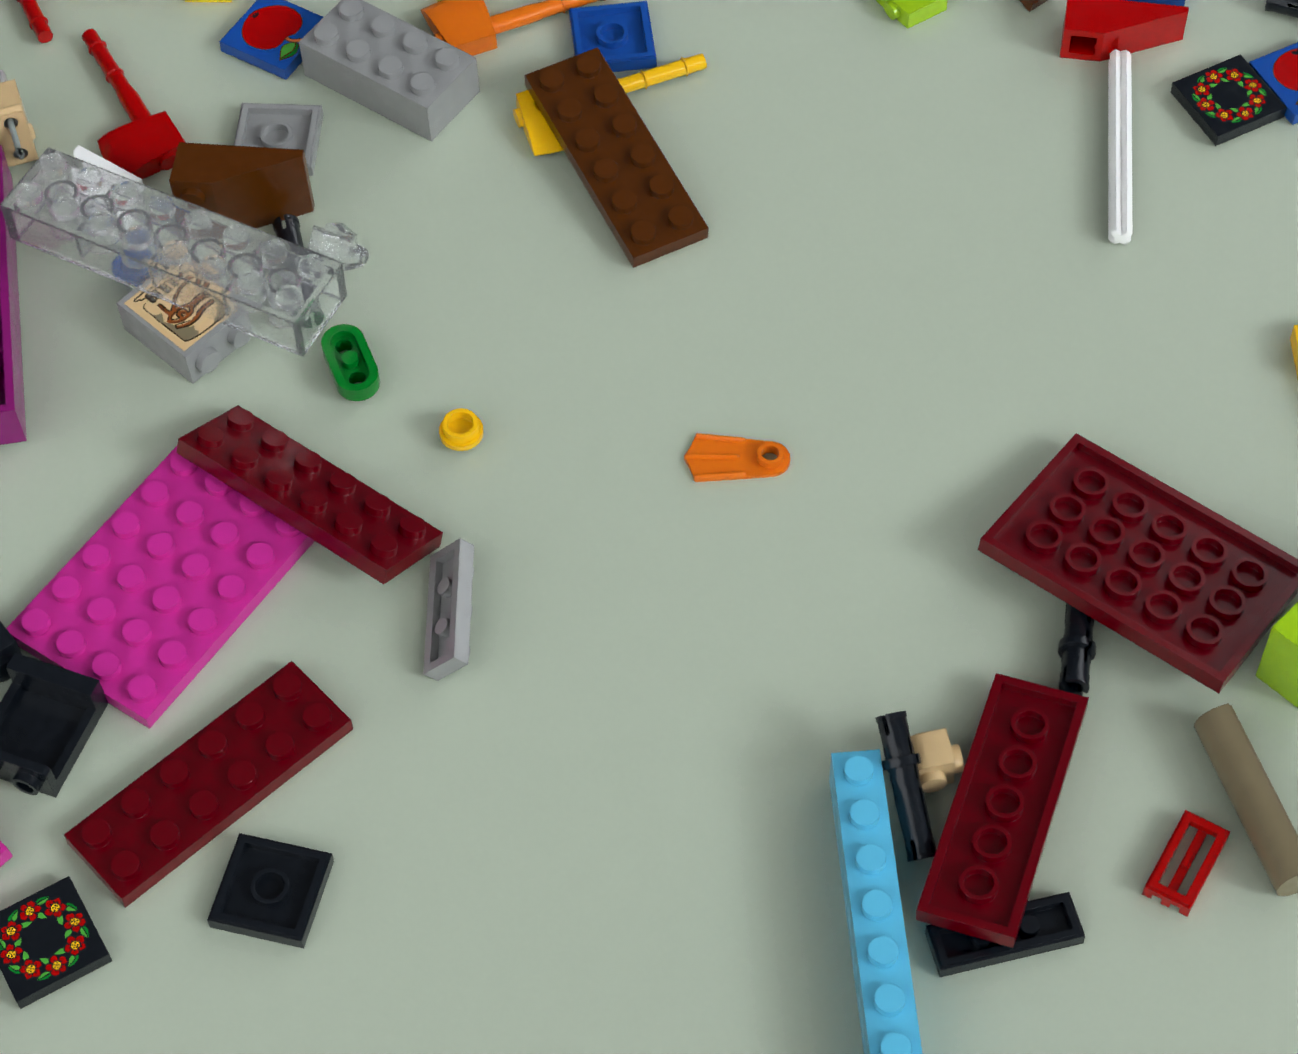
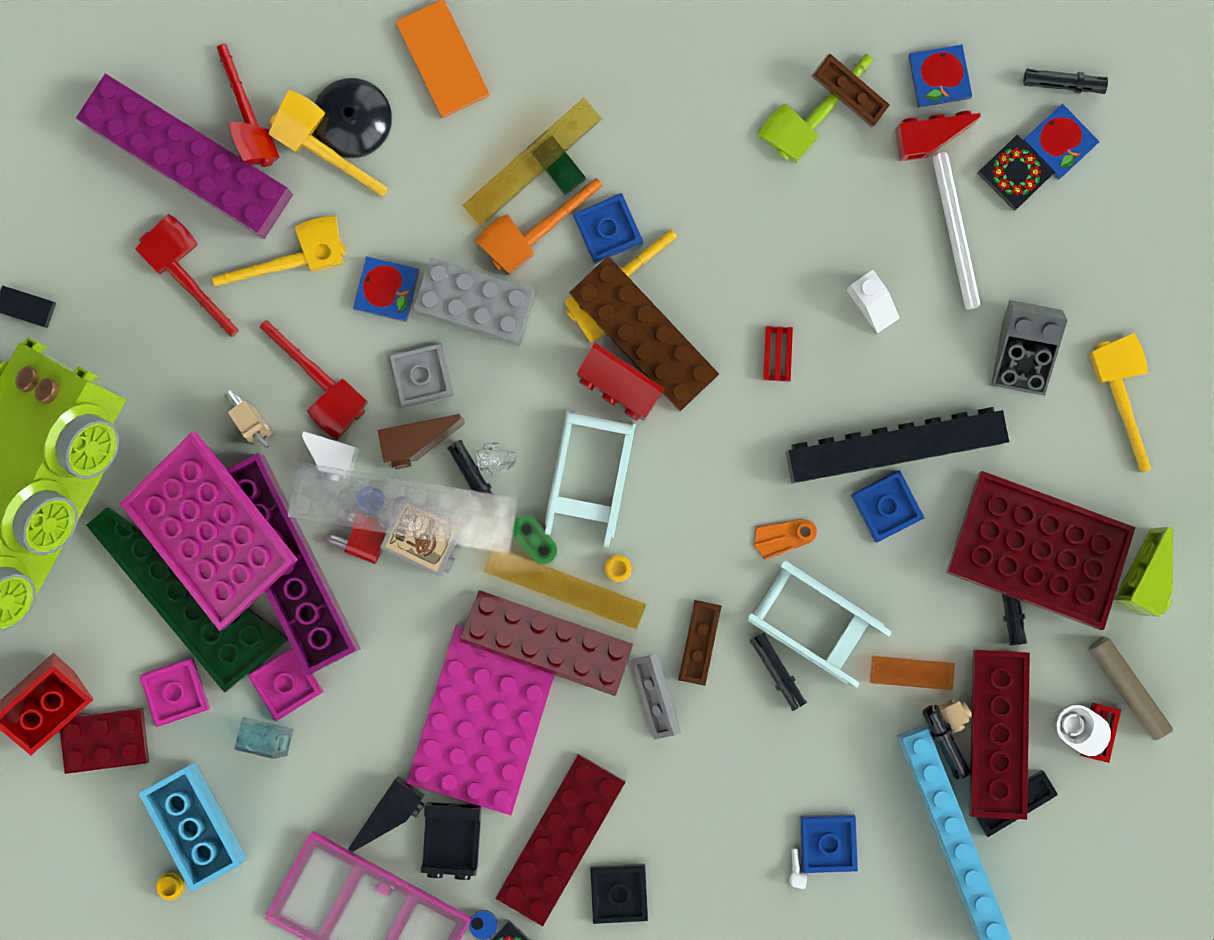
camera: 20 degrees left, 30 degrees up
(25, 873) = (483, 924): none -> blue tile
(94, 305) = (361, 544): none -> red piece
(372, 440) = (566, 588): none -> clear yellow tile
(470, 356) = (580, 508): none -> light aqua piece
(549, 562) = (699, 642): none -> reddish brown tile
(557, 192) = (619, 382): none -> red slope
(583, 948) = (797, 879): none -> white hand
(657, 910) = (828, 843): none -> blue tile
(664, 642) = (777, 670): none -> black pin
(755, 636) = (846, 641): none -> light aqua piece
(813, 204) = (788, 355): none -> red tile
(881, 689) = (912, 672): none -> clear orange tile
(912, 454) = (887, 506): none -> blue tile
(951, 374) = (897, 446): none -> black brick
(969, 190) = (873, 301): none -> white slope
(1153, 836) = (1082, 729): none -> white cap
(1193, 298) = (1028, 347): none -> dark grey slope

